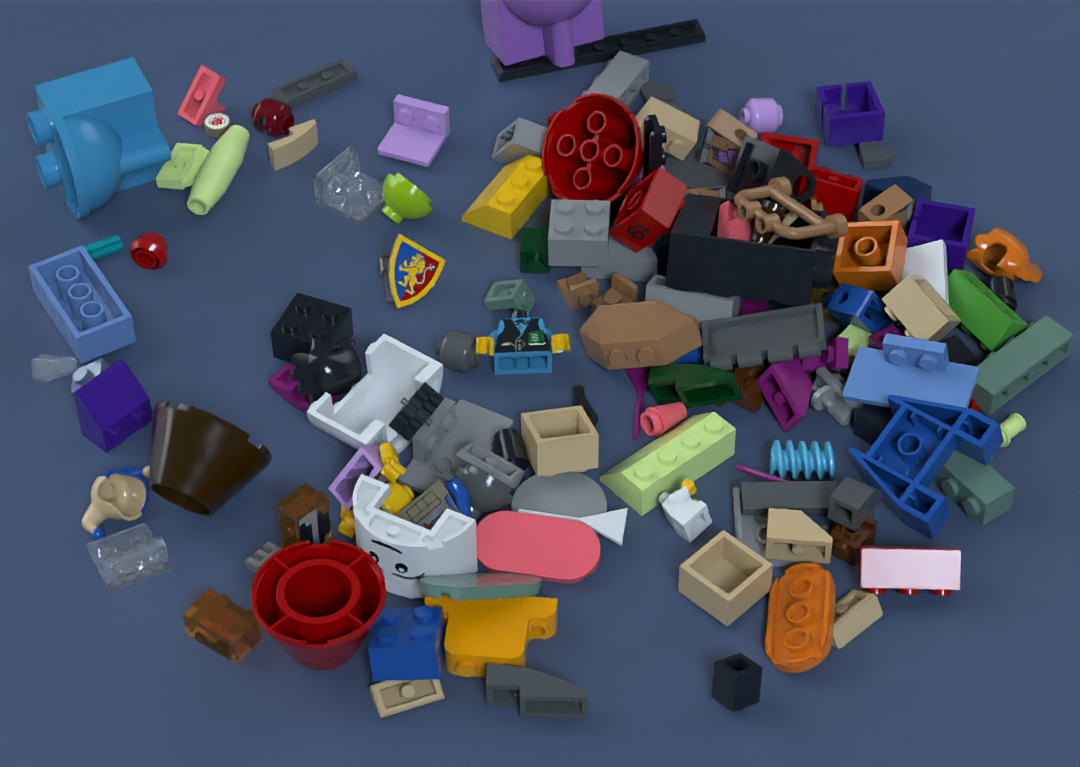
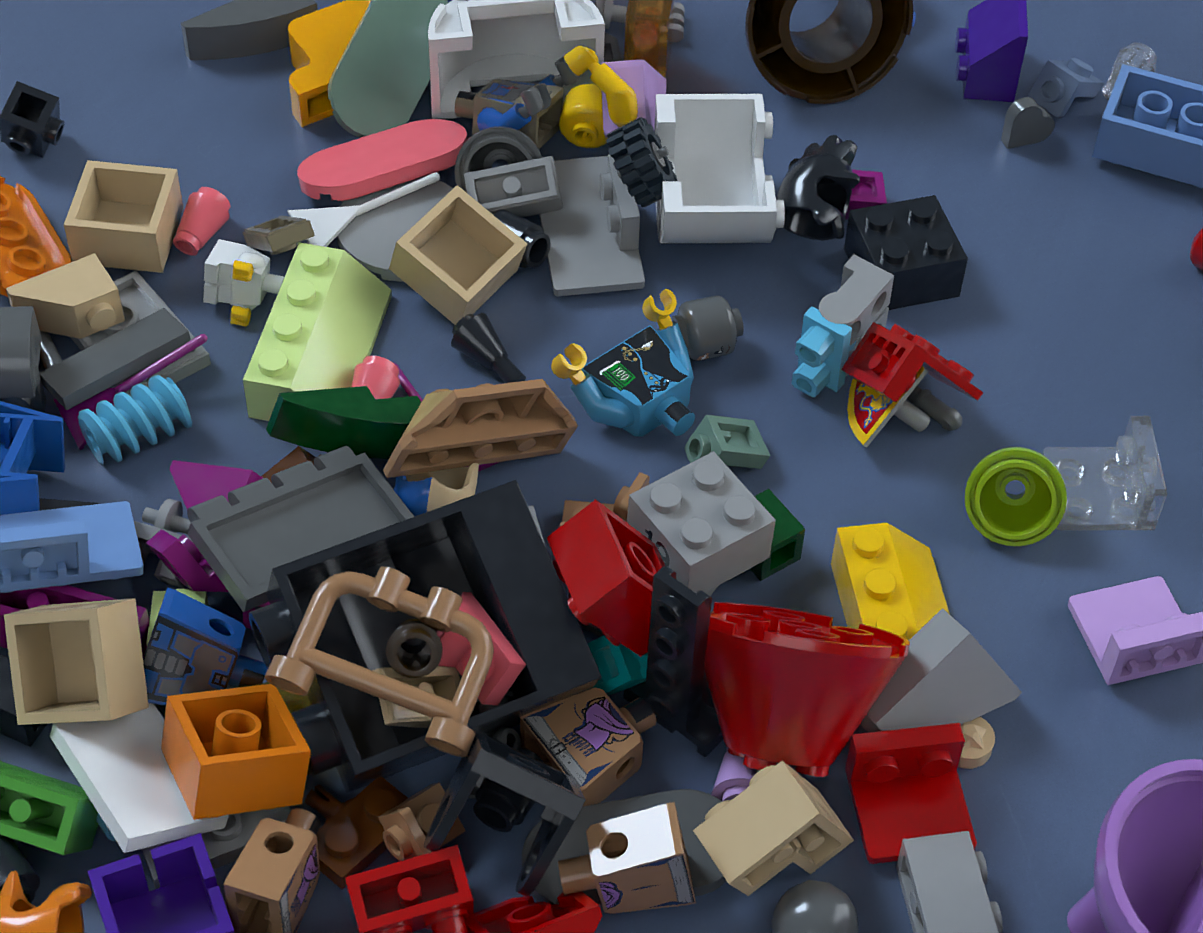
camera: 140 degrees right, 5 degrees up
(151, 368) = (1026, 124): none -> dark grey tile
(395, 257) = (892, 358): none -> red bracket
(398, 302) = (840, 324): none -> hips
(643, 521) = (278, 234): none -> dark tan plate
(667, 570) = (202, 218): none -> coral cone

